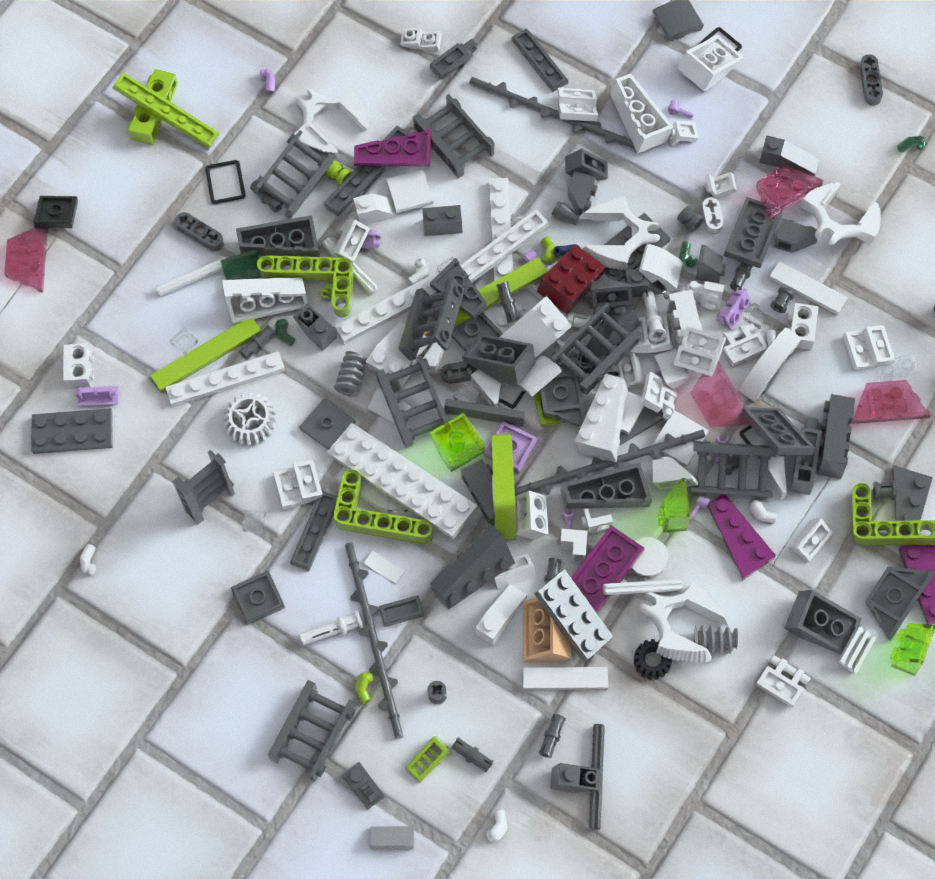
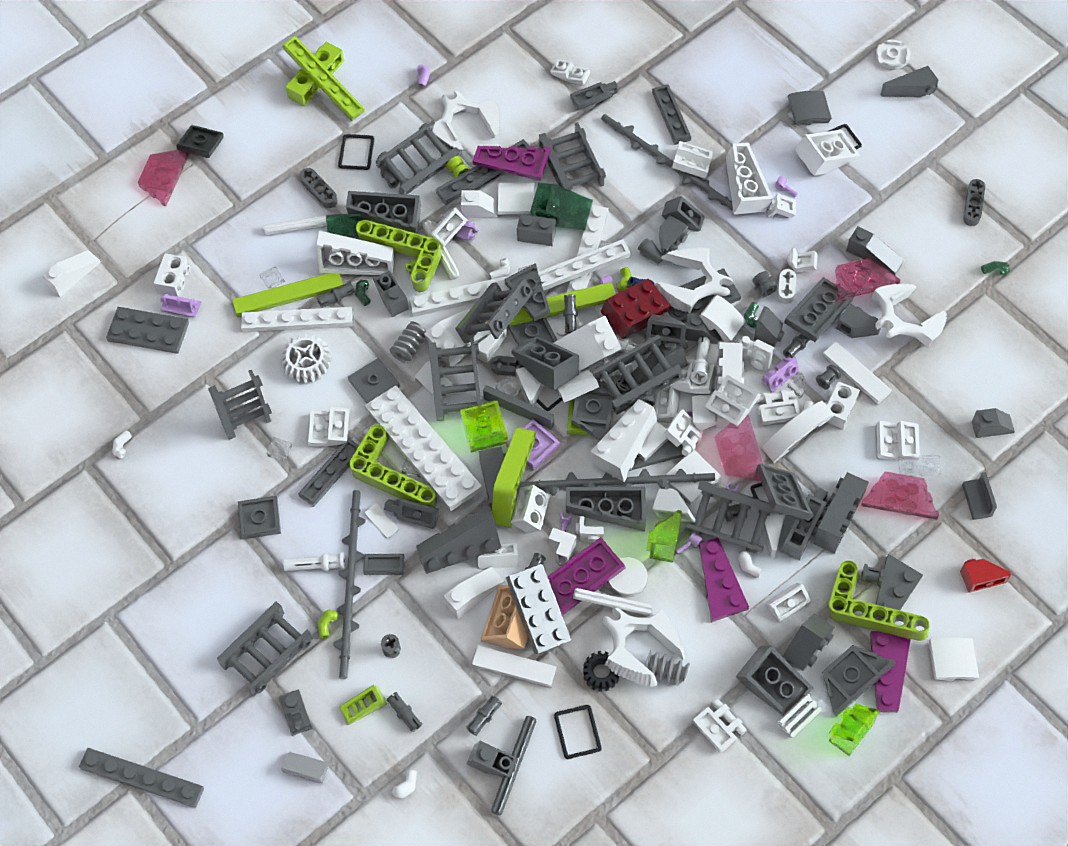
camera: 15 degrees right, 5 degrees down
(414, 550) = (413, 512): none -> dark grey hinge
(461, 188) = (559, 203): none -> clear green slope
(649, 698) = (588, 707): none -> black piece
(846, 572) = (811, 637): none -> dark grey brick

